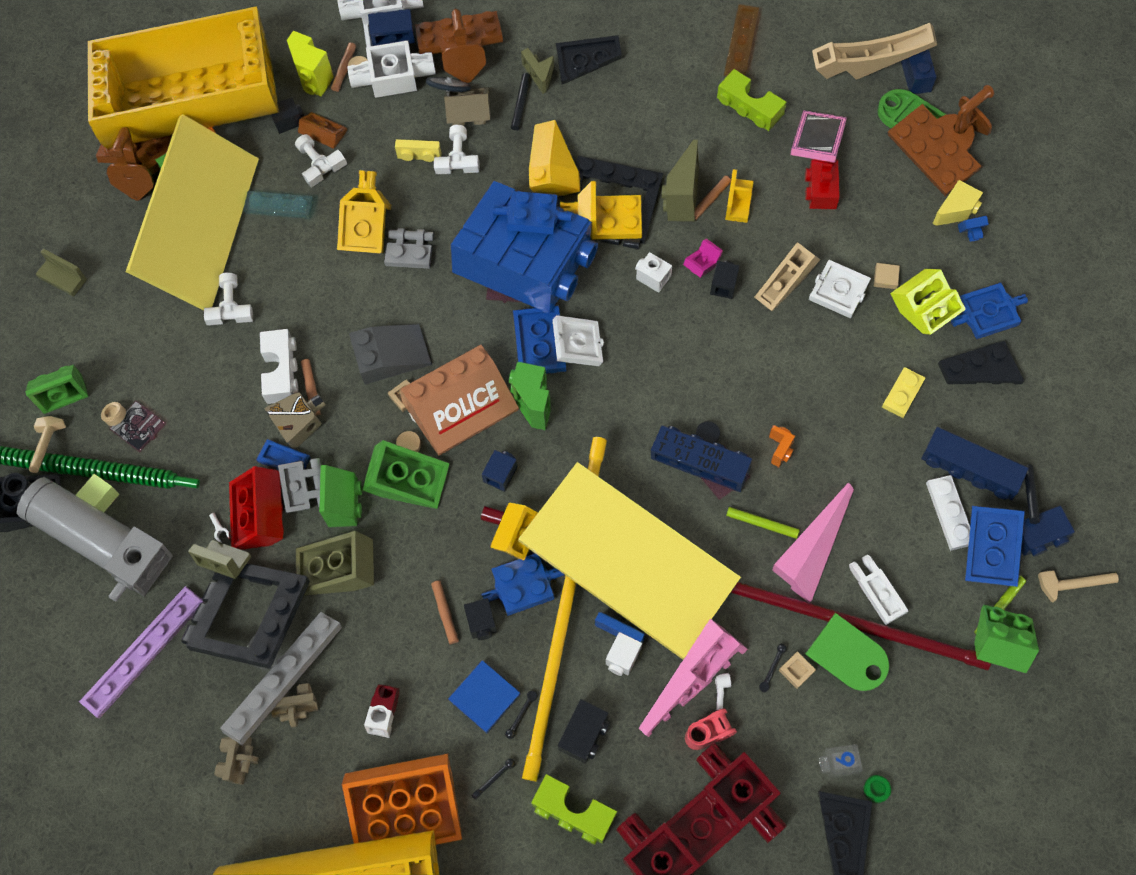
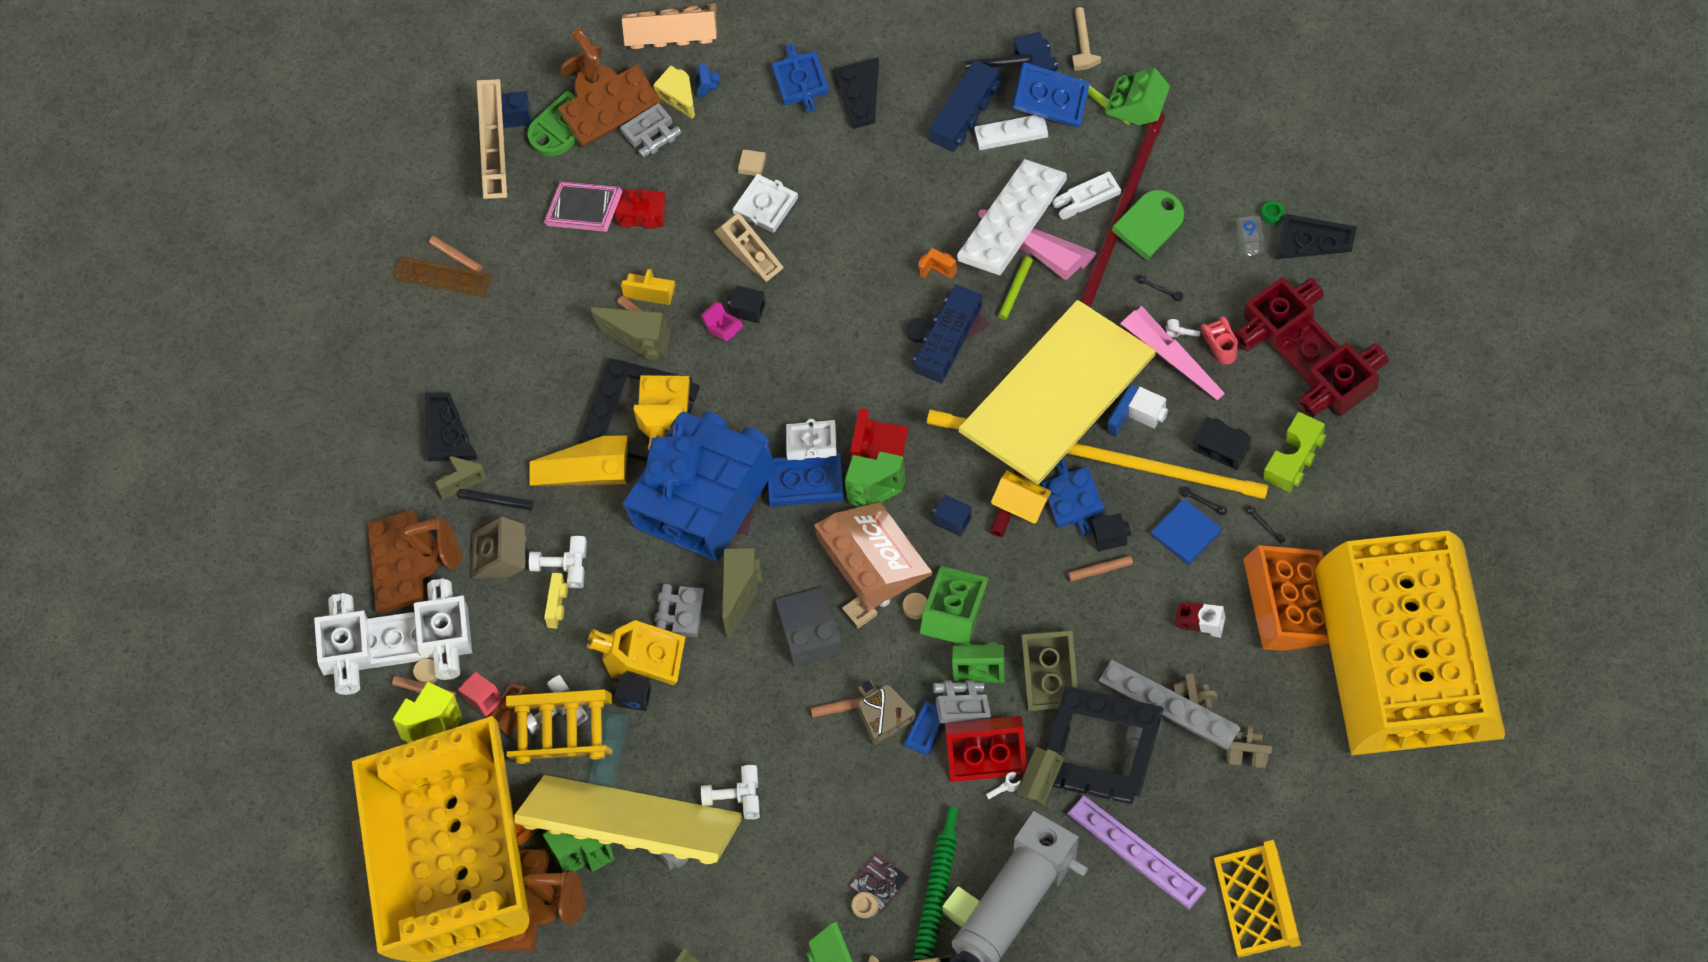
camera: 85 degrees left, 5 degrees down
(76, 790) = (1277, 888): none -> yellow fence
(278, 347) = (798, 732): white arch -> none
(309, 162) = (546, 703): none -> yellow fence
(326, 215) = (632, 692): none -> black brick
(330, 103) = (480, 694): none -> coral brick
(391, 27) = (388, 625): dark blue brick -> none
(419, 285) = (740, 585): none -> olive slope
(448, 84) = (471, 567): wheel -> none
(578, 399) = (877, 437): none -> red bracket
(653, 272) = (733, 369): white brick -> none
(763, 111) = (516, 283): lime arch -> none
(765, 48) = (455, 254): none -> nougat piece
(797, 669) = (1163, 267): tan tile -> none
(841, 513) = (1012, 217): none -> white plate
(903, 392) = (883, 159): light yellow plate -> none
(916, 182) = (648, 124): none -> light grey plate
(941, 303) = (800, 119): neon yellow piece -> none
(1032, 193) = (670, 27): none -> light nougat wedge

